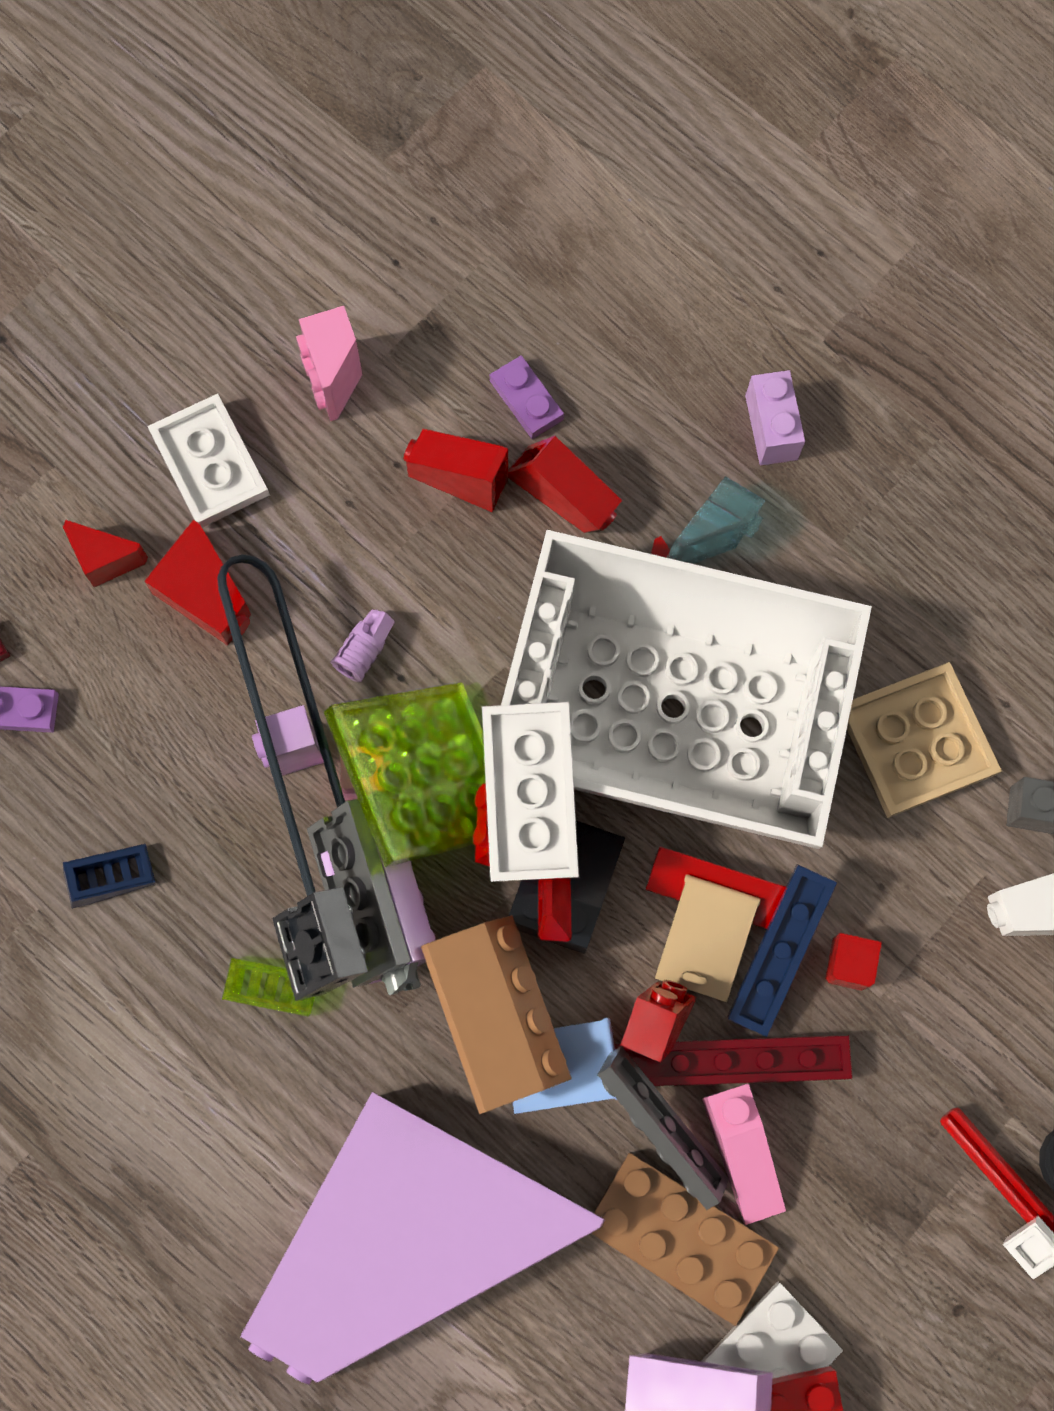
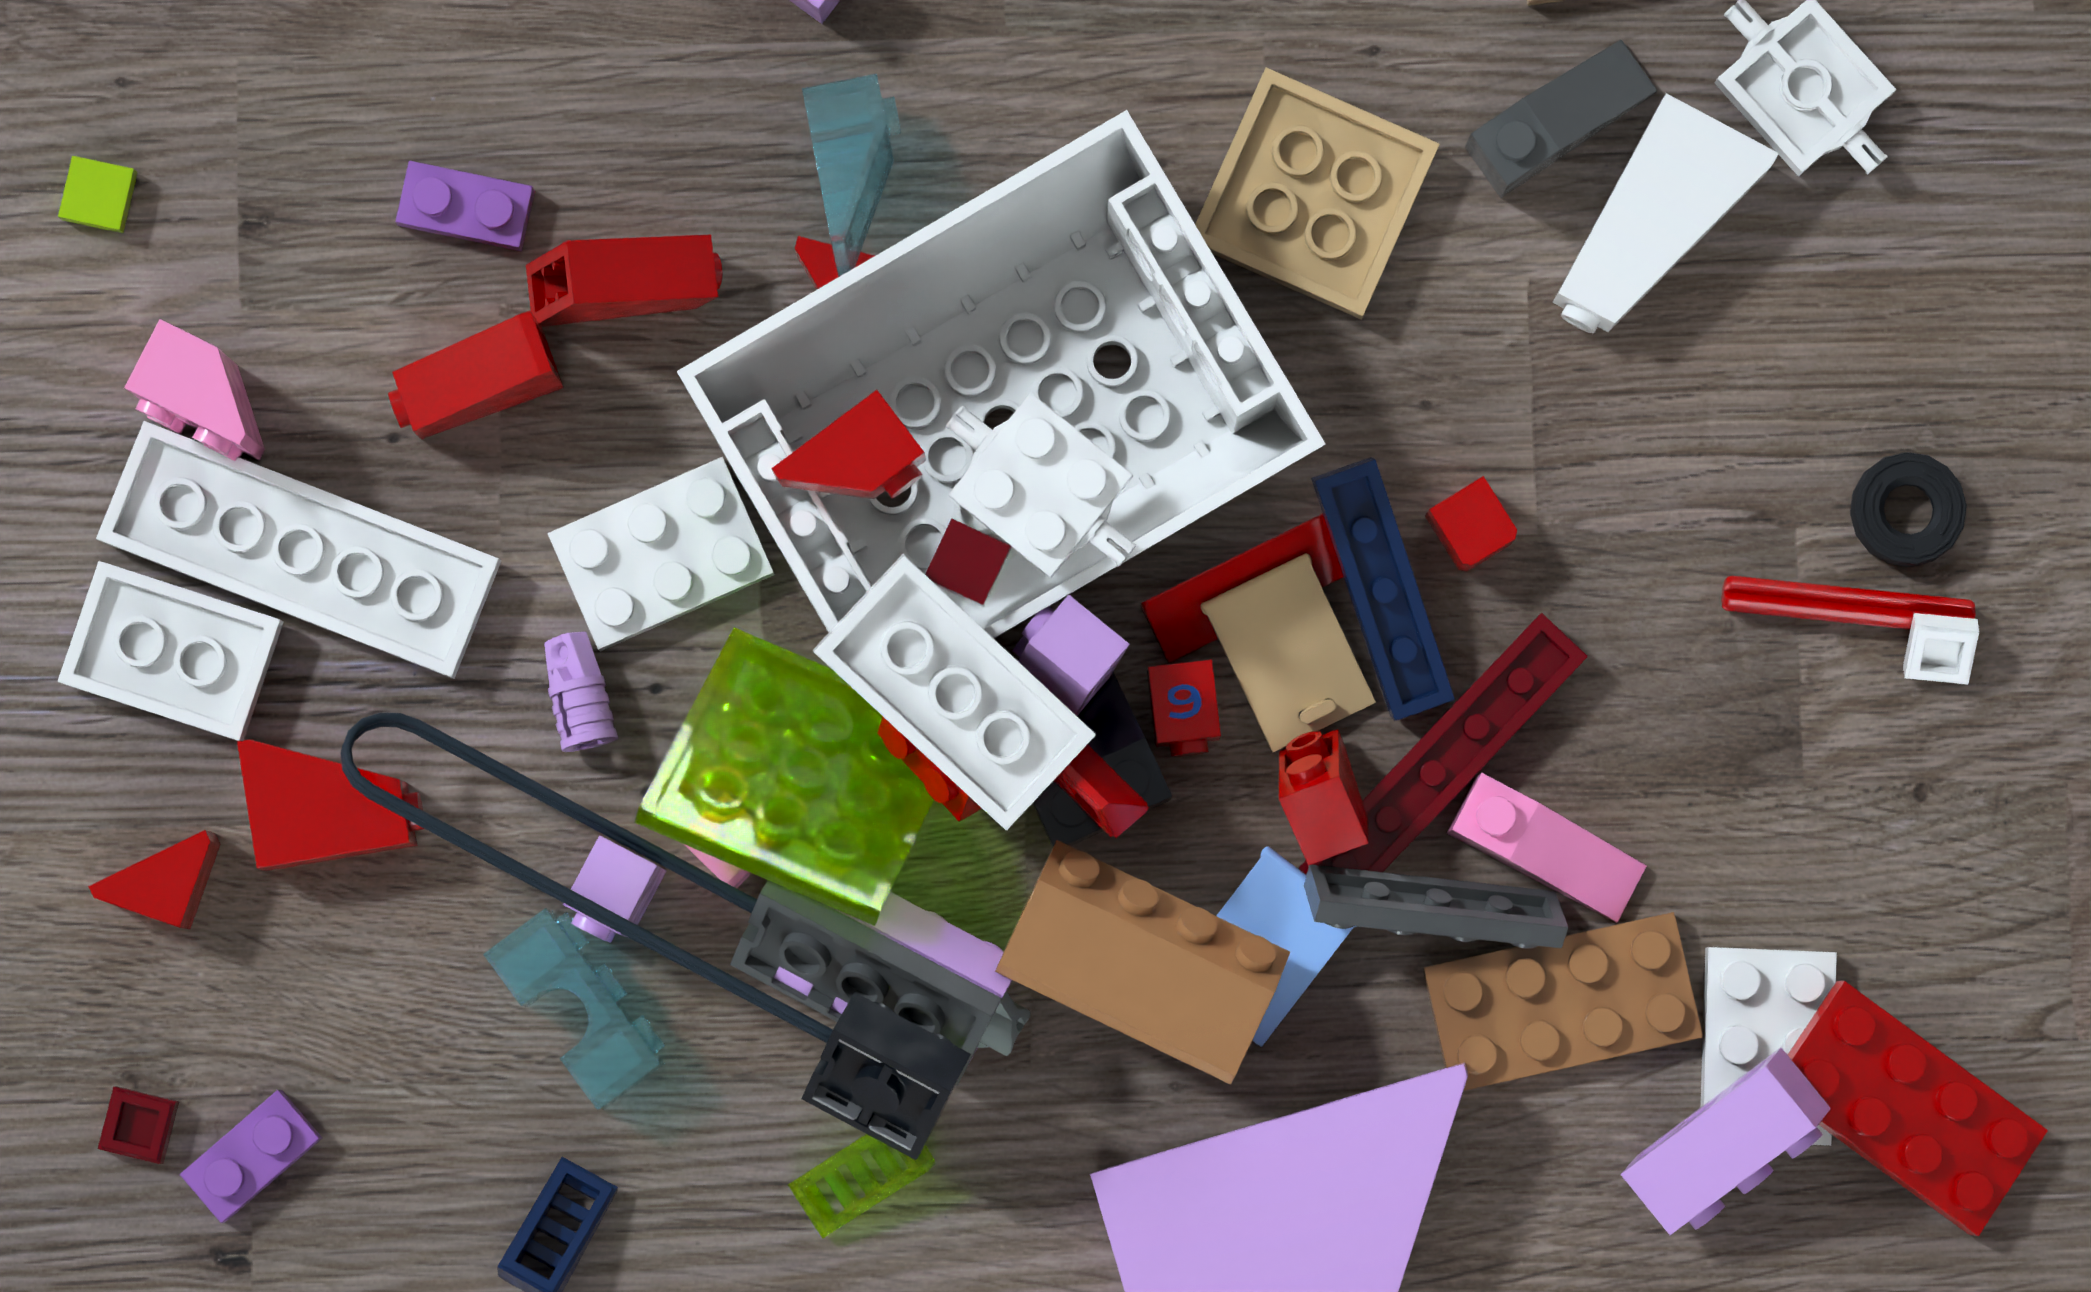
camera: 40 degrees left, 10 degrees up
(218, 816) = (549, 957): none -> clear light blue arch
(307, 471) = (299, 550): none -> white plate
(376, 252) = (97, 194): none -> lime tile
(461, 621) = (661, 554): none -> white plate
(591, 637) = (856, 455): none -> red slope
(596, 738) = (967, 562): none -> dark red tile
(604, 832) = (1070, 652): none -> lavender brick
(633, 914) = (1184, 706): none -> red brick
(665, 735) = (1041, 485): none -> white plate

